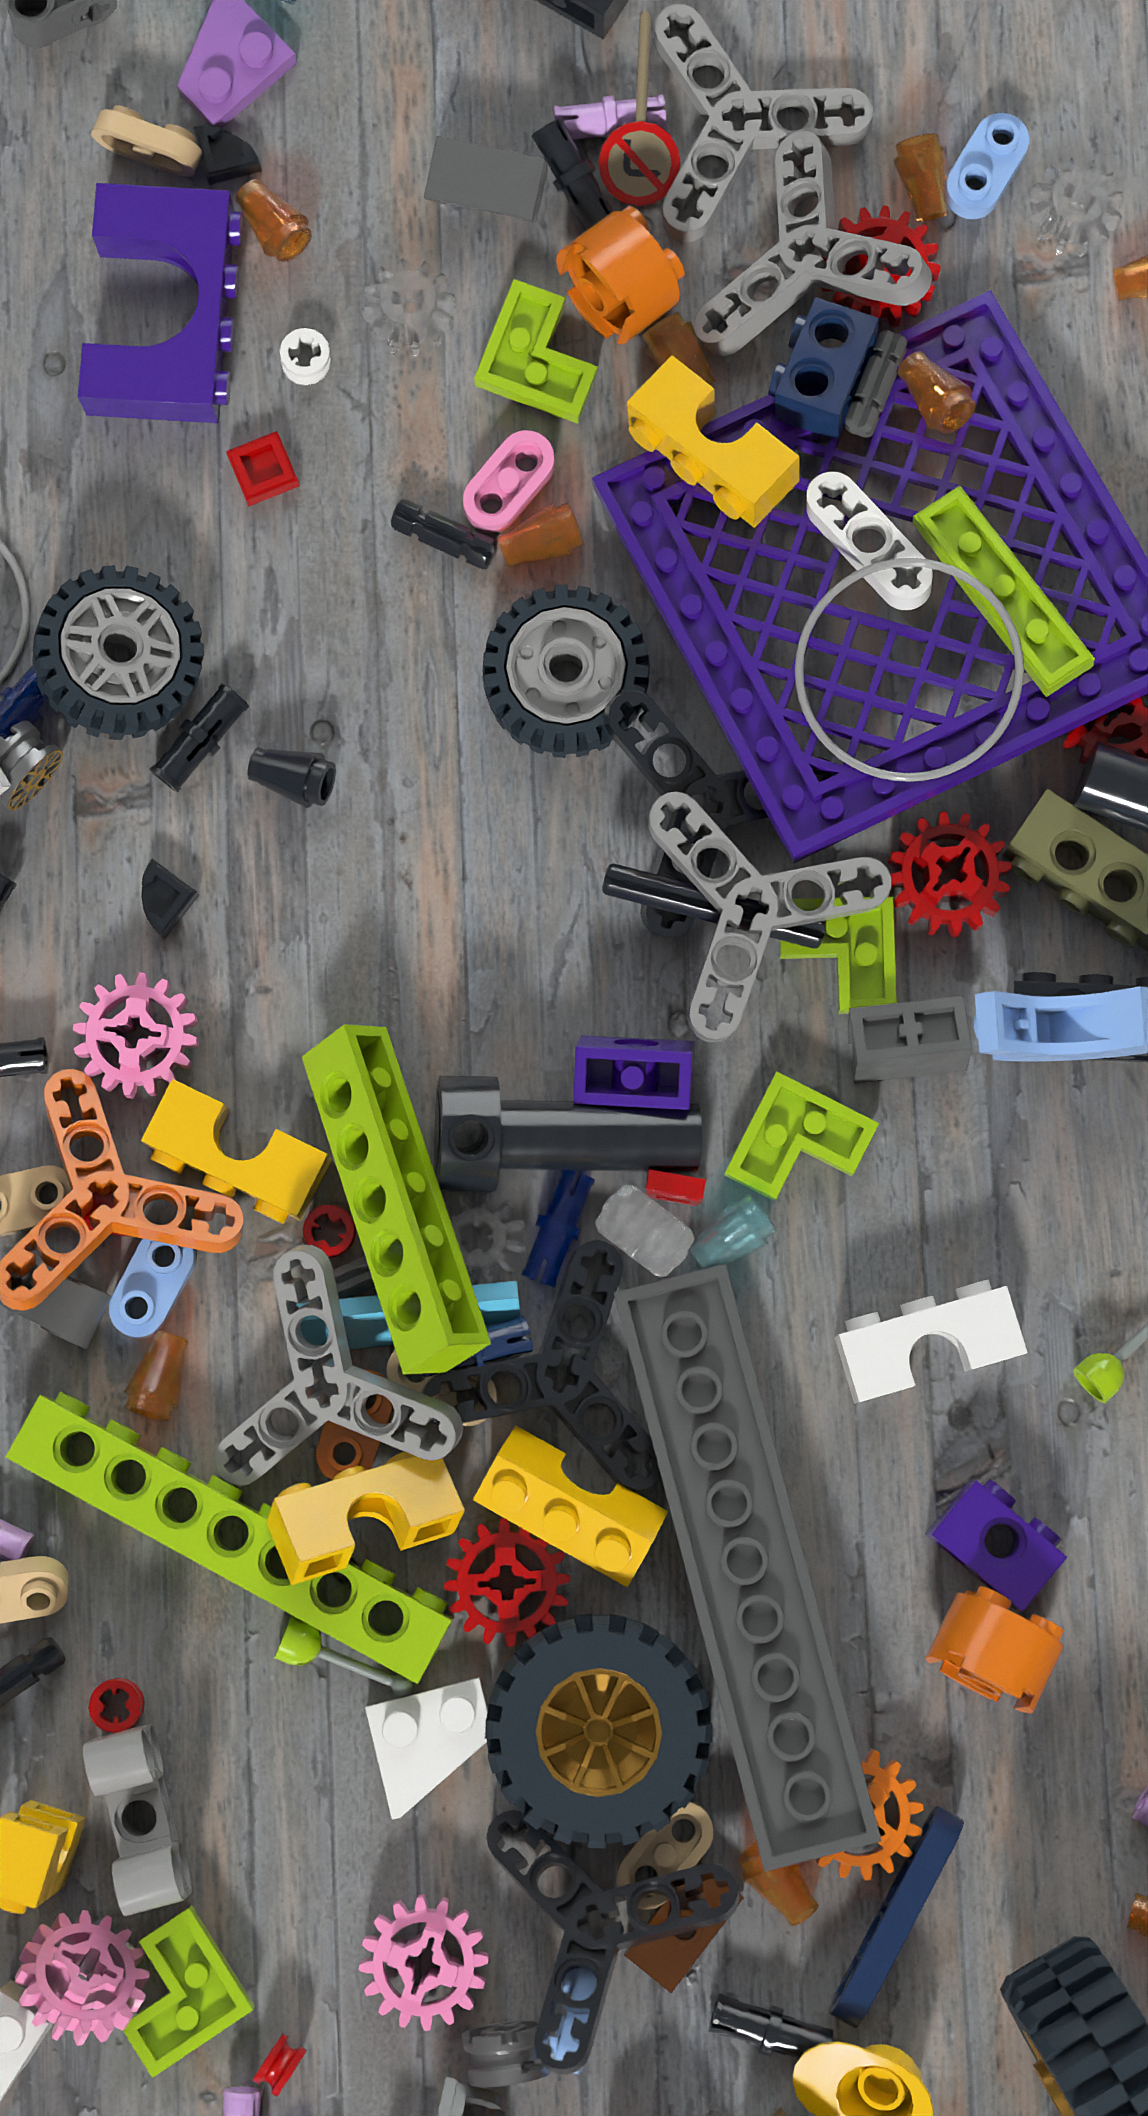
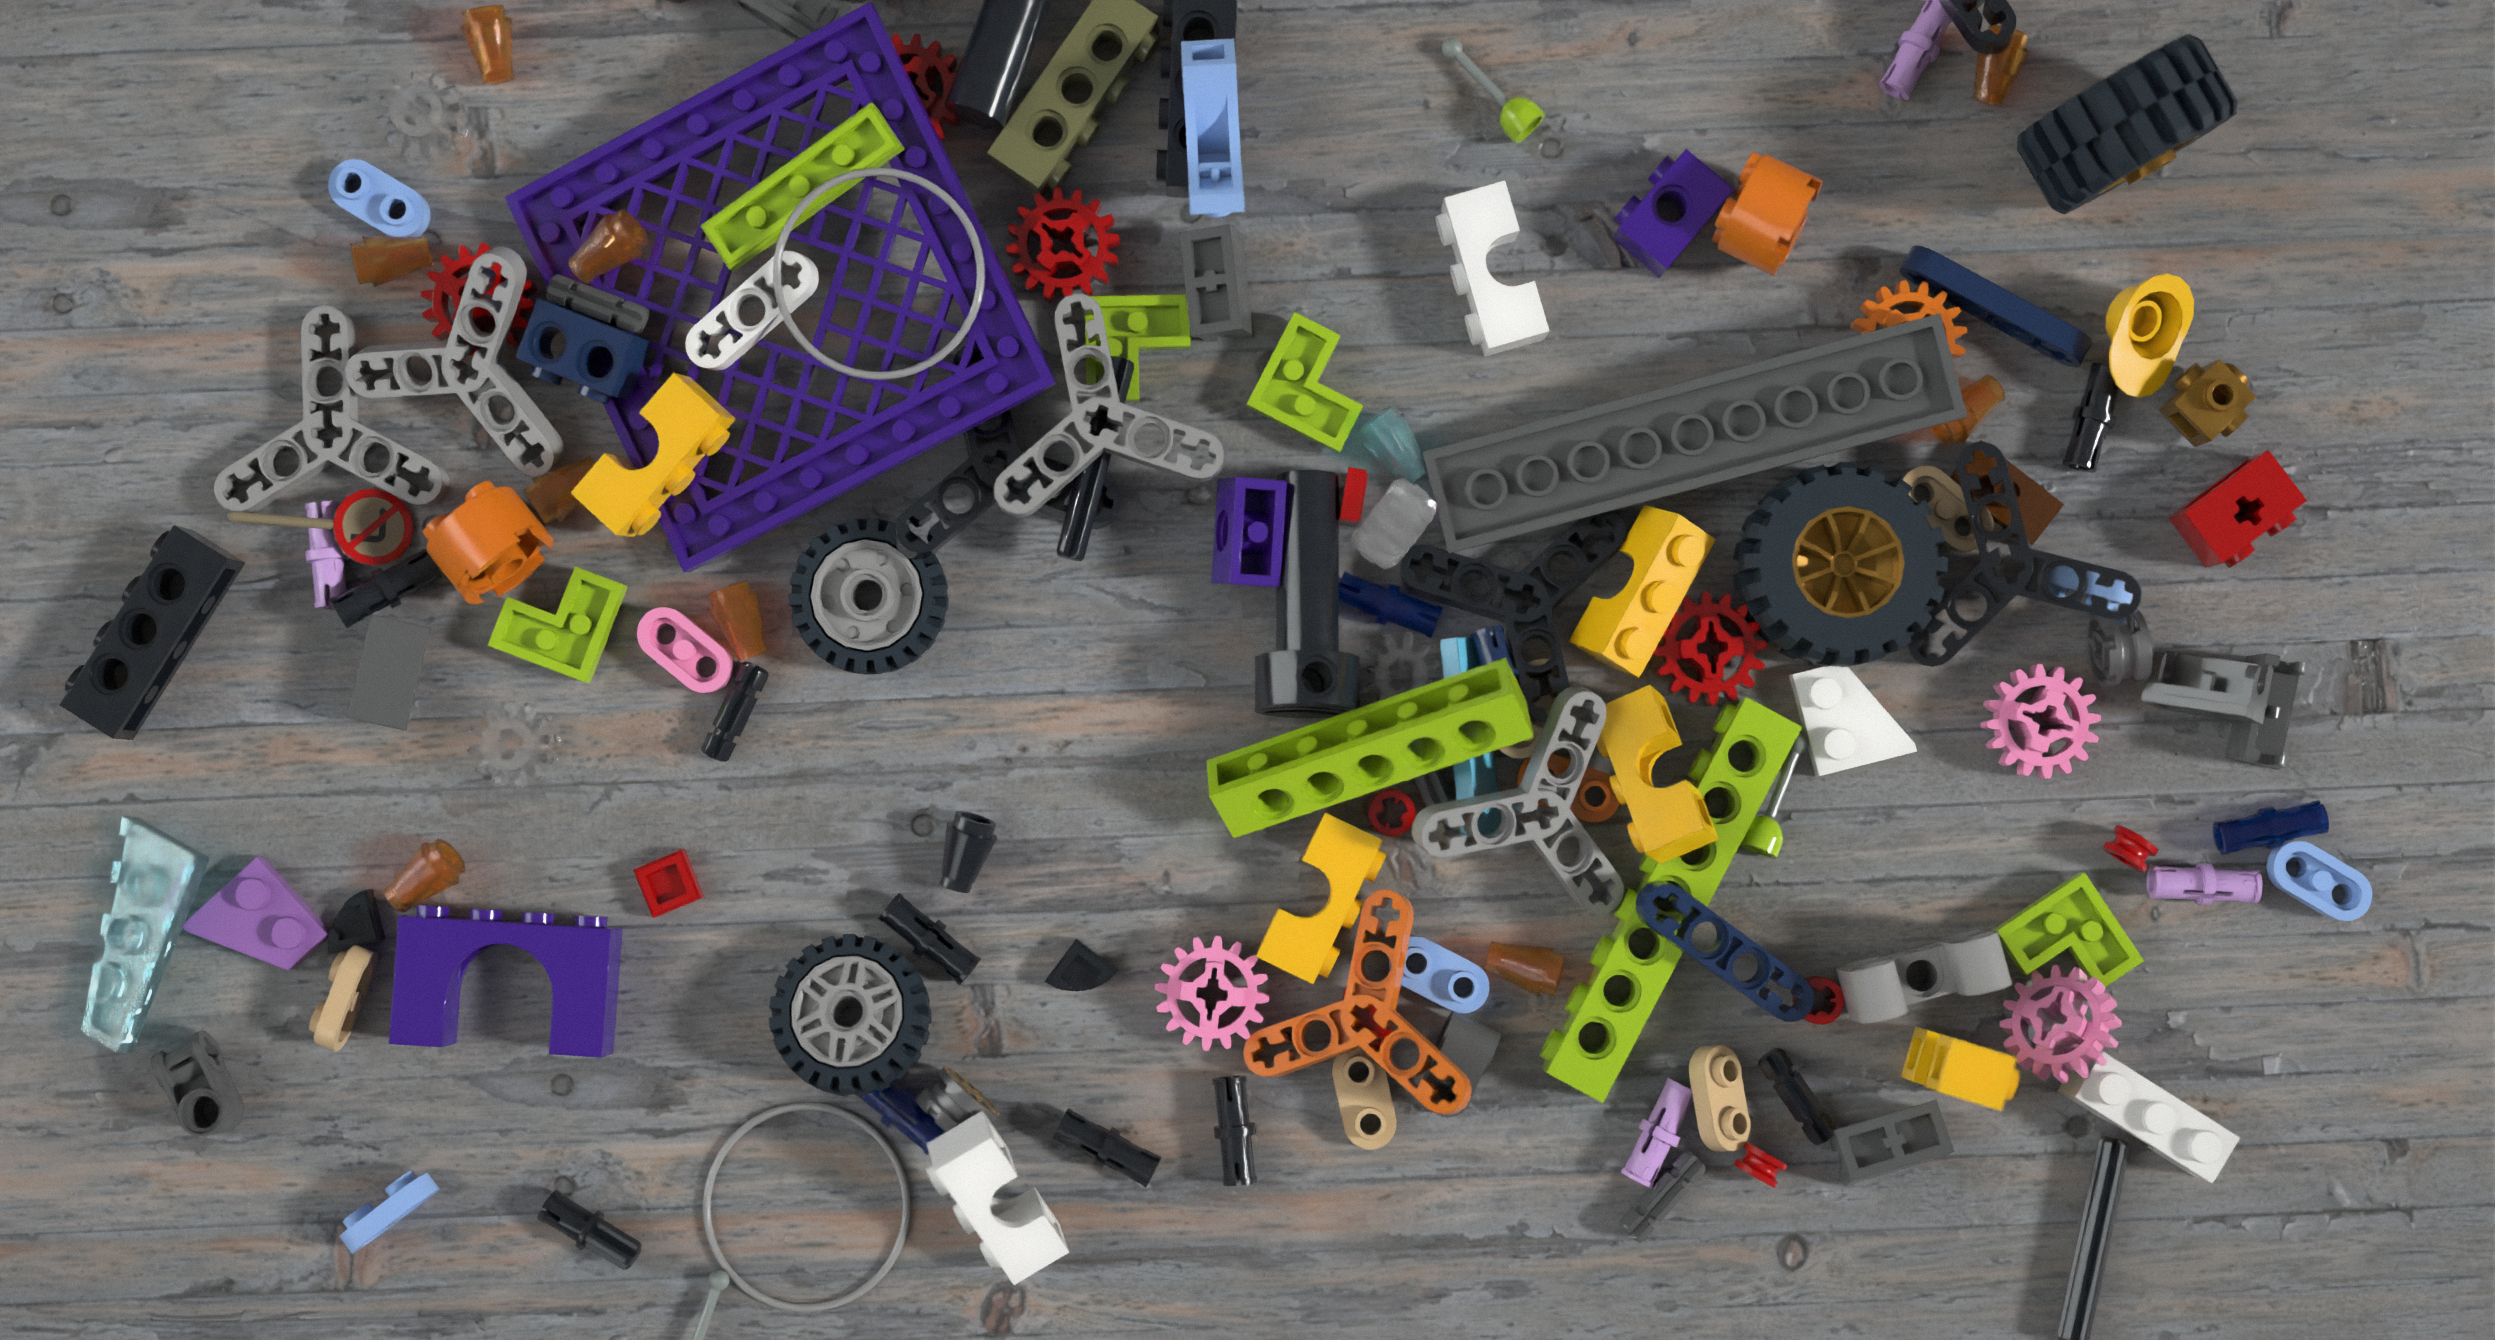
camera: 90 degrees left, 5 degrees up
(165, 1590) = (1726, 949): none -> dark blue beam
(318, 365) = (568, 831): white bush -> none

